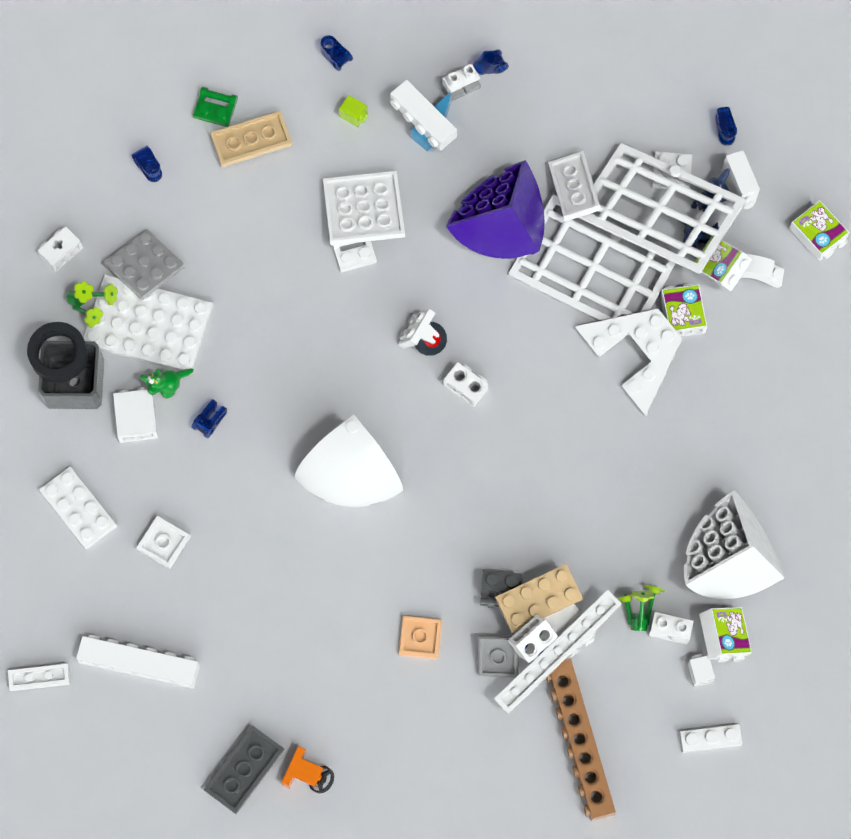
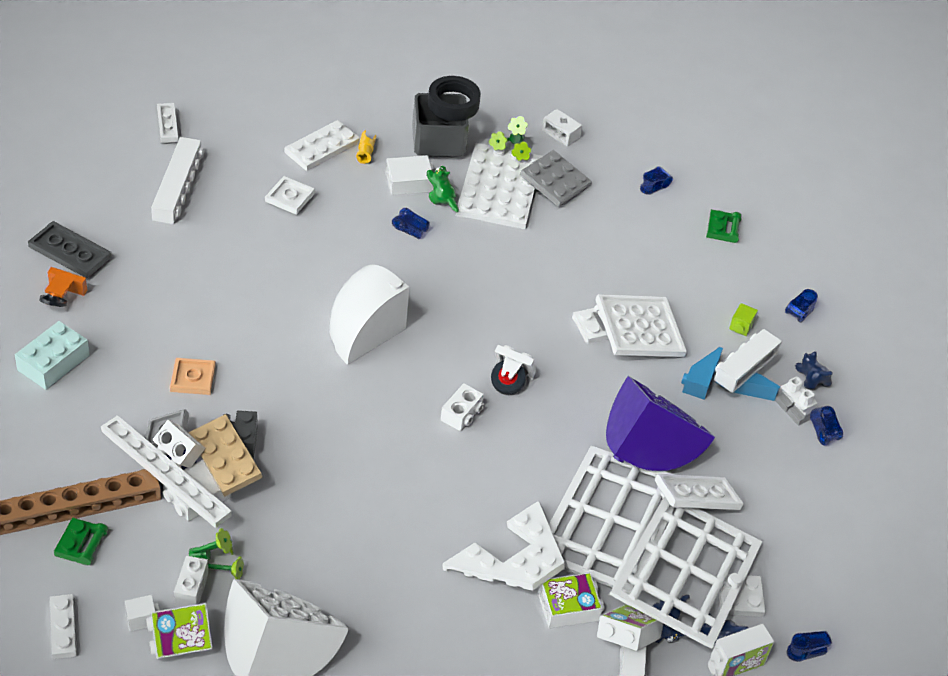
camera: 80 degrees right, 25 degrees down
(85, 459) = (365, 148): none -> yellow piece
(251, 138) = (696, 248): tan plate -> none
(399, 772) = (52, 355): none -> light aqua brick
(425, 58) = (814, 371): none -> dark blue animal
(426, 161) = (700, 375): none -> dark azure slope
(617, 735) = (75, 538): none -> green plate

